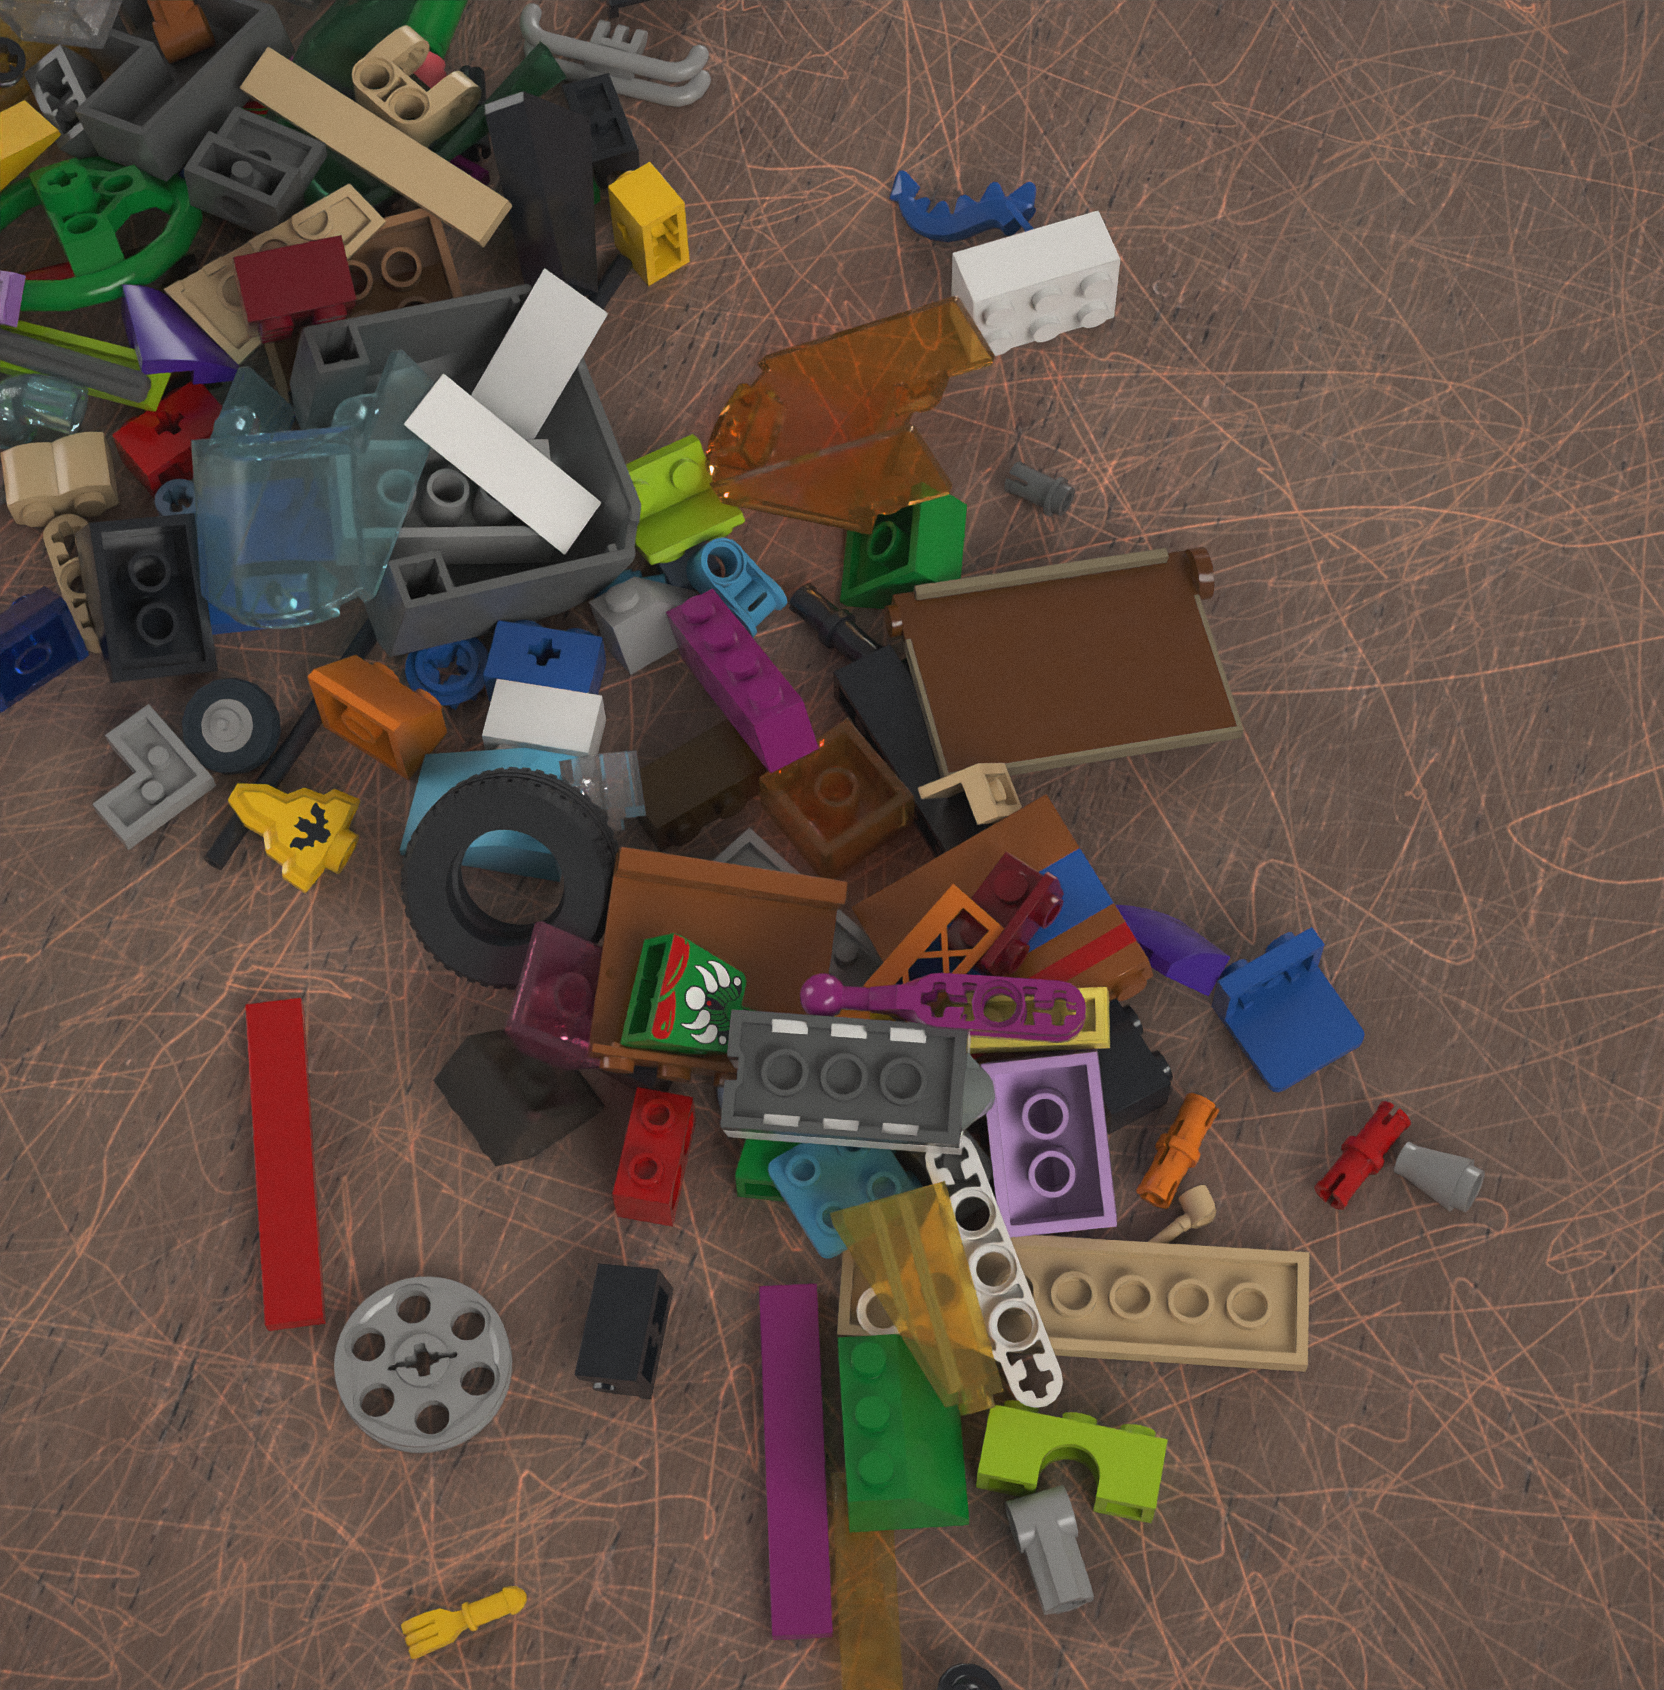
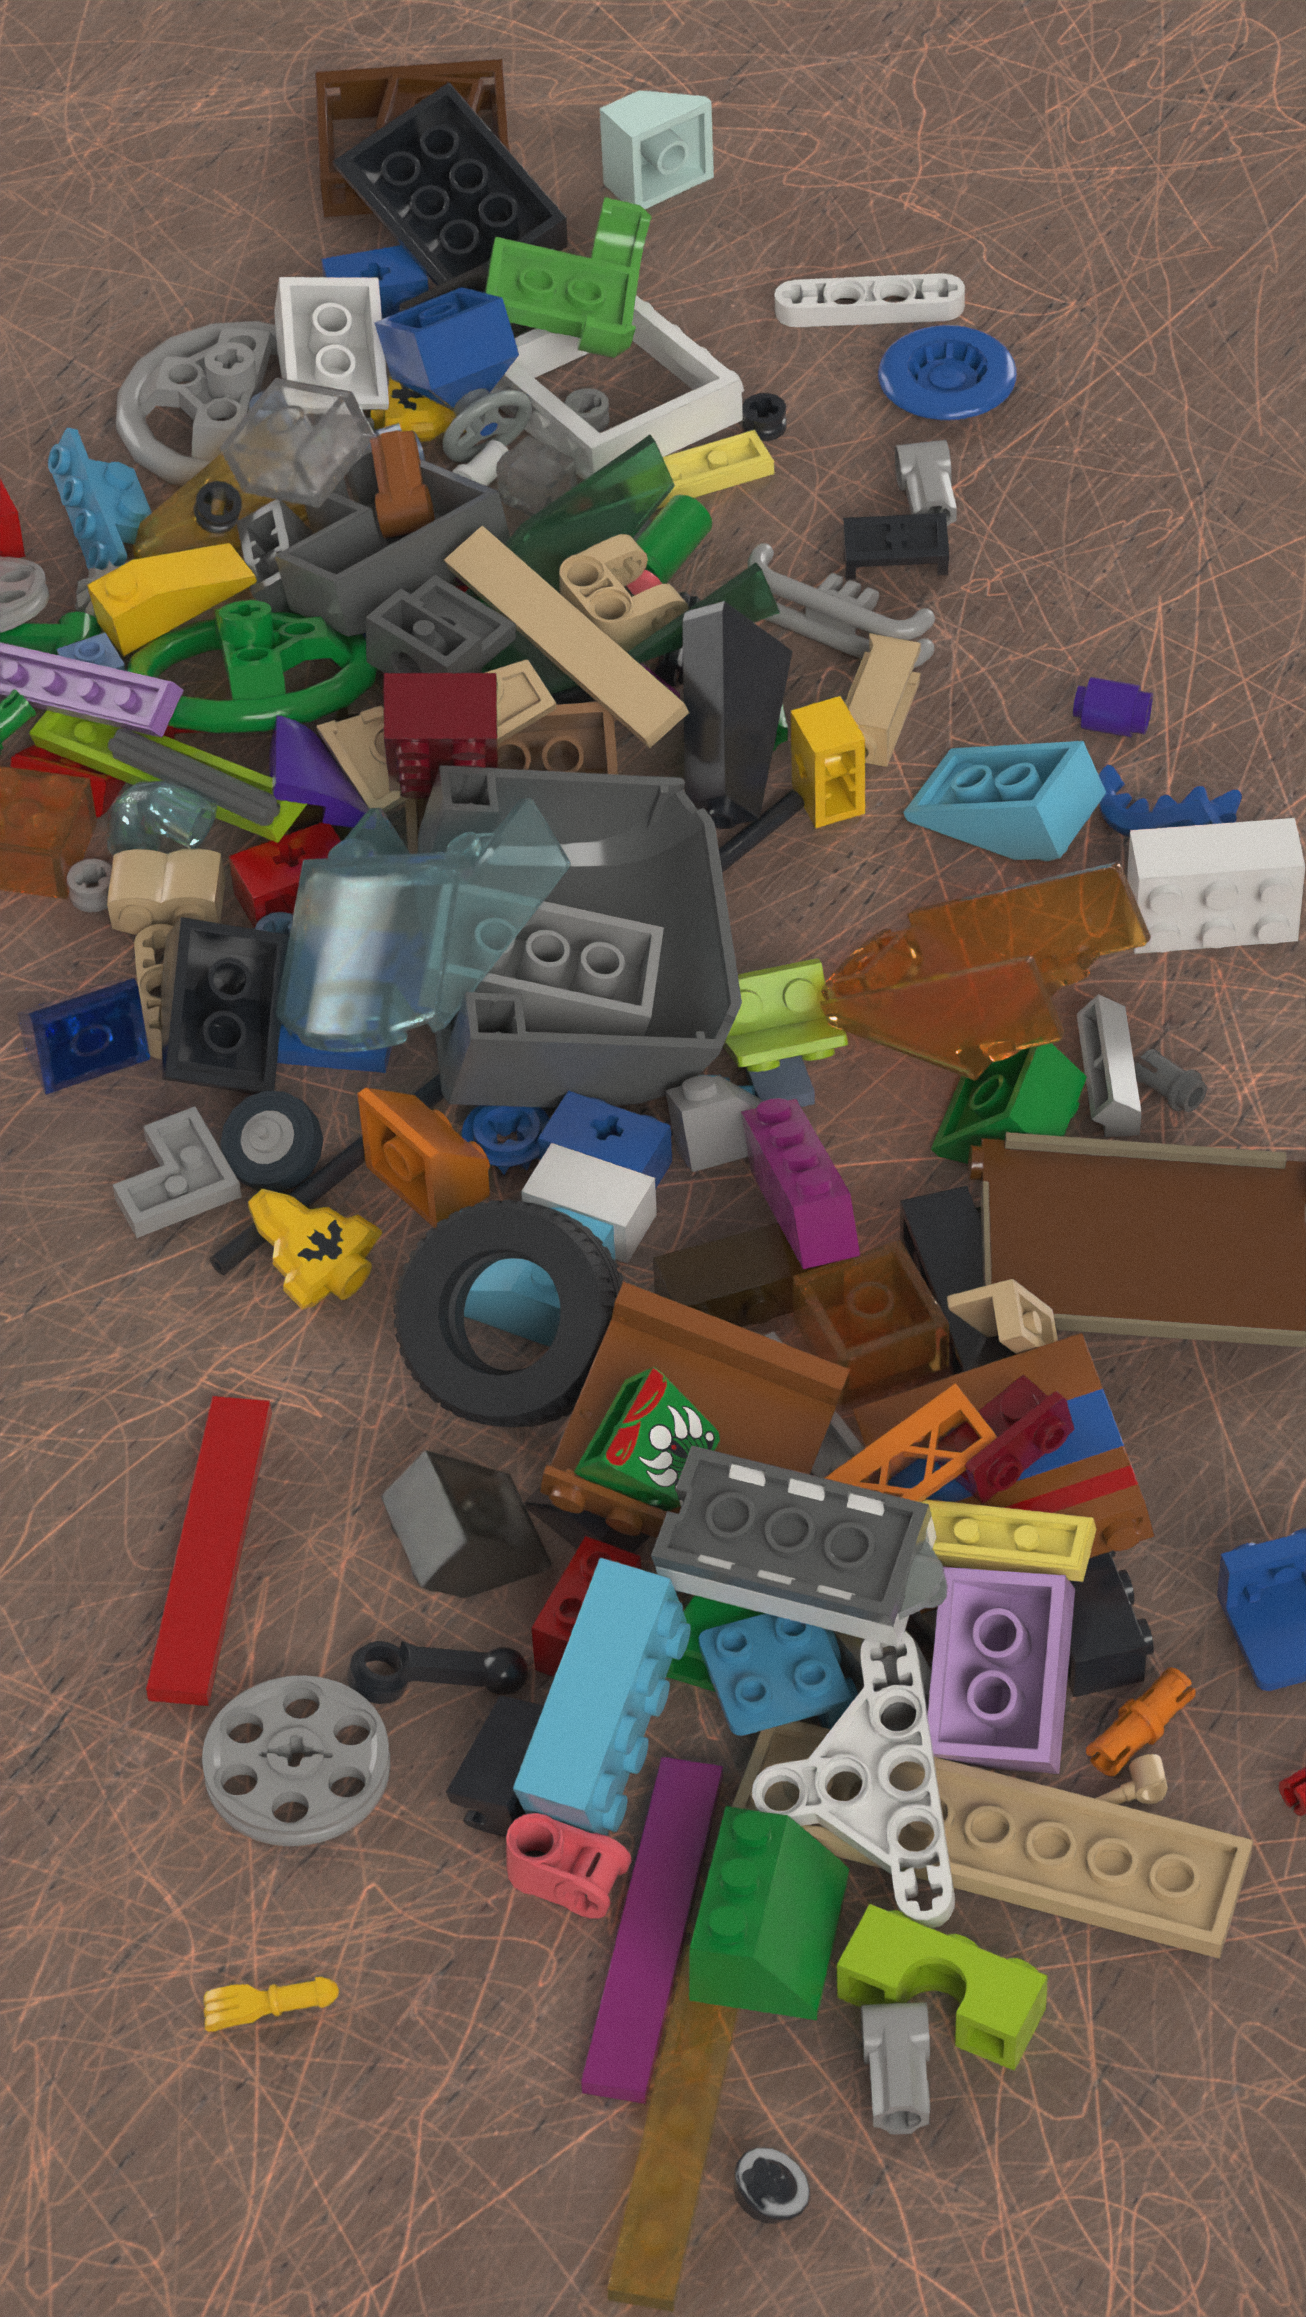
camera: 15 degrees right, 15 degrees down
(503, 463) = (610, 936): white sticker -> none
(538, 355) = (669, 850): white sticker -> none
(556, 999) = (520, 1431): clear pink slope -> none
(585, 1227) = (498, 1671): none -> black piece
(610, 132) = (811, 665): black hinge -> none
(610, 782) = (639, 1249): clear brick -> none
(677, 136) = (883, 694): none -> tan window
(700, 1263) = (604, 1699): none -> medium azure brick
(705, 1419) = (569, 1864): none -> coral piece
(741, 583) = (833, 1109): dark azure piece -> none
(821, 224) = (1011, 797): none -> medium azure slope
(827, 996) = (869, 1468): magenta piece -> none
(834, 626) = (917, 1167): black pin -> none
(891, 111) = (1113, 707): none -> dark purple brick
(923, 1280) = (827, 1757): clear yellow slope -> none
(988, 484) = (1109, 1067): none -> light grey piece
(1175, 948) = (1186, 1521): dark purple slope -> none

